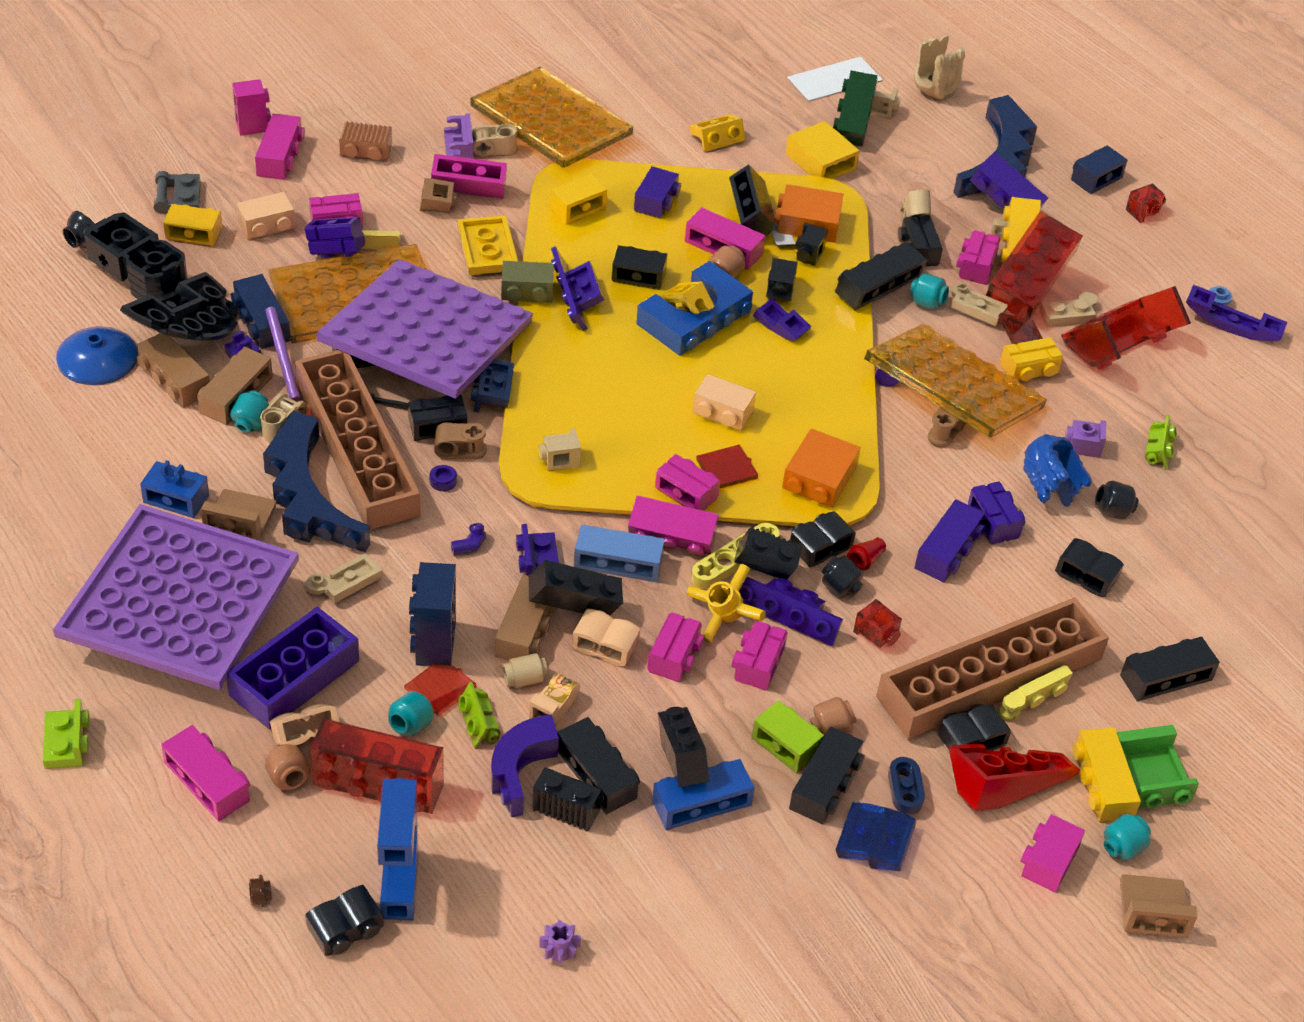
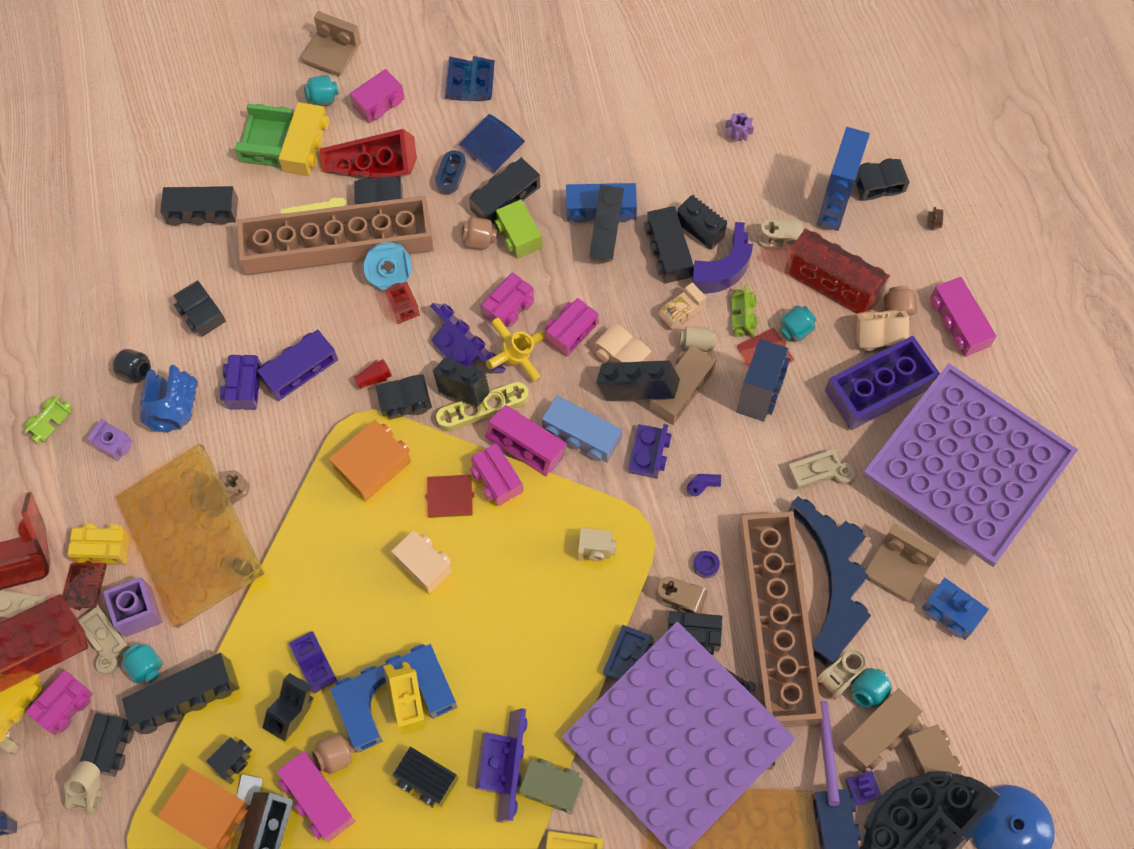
camera: 155 degrees left, 20 degrees up
(65, 737) = (1066, 382): lime bracket -> none
(457, 814) = (782, 233): none -> tan piece
(842, 576) = (406, 354): black head -> none
(913, 649) = (394, 254): none -> medium azure plate
(952, 918) = (469, 79): none -> clear blue slope
(966, 319) = (132, 607): none -> medium lavender head

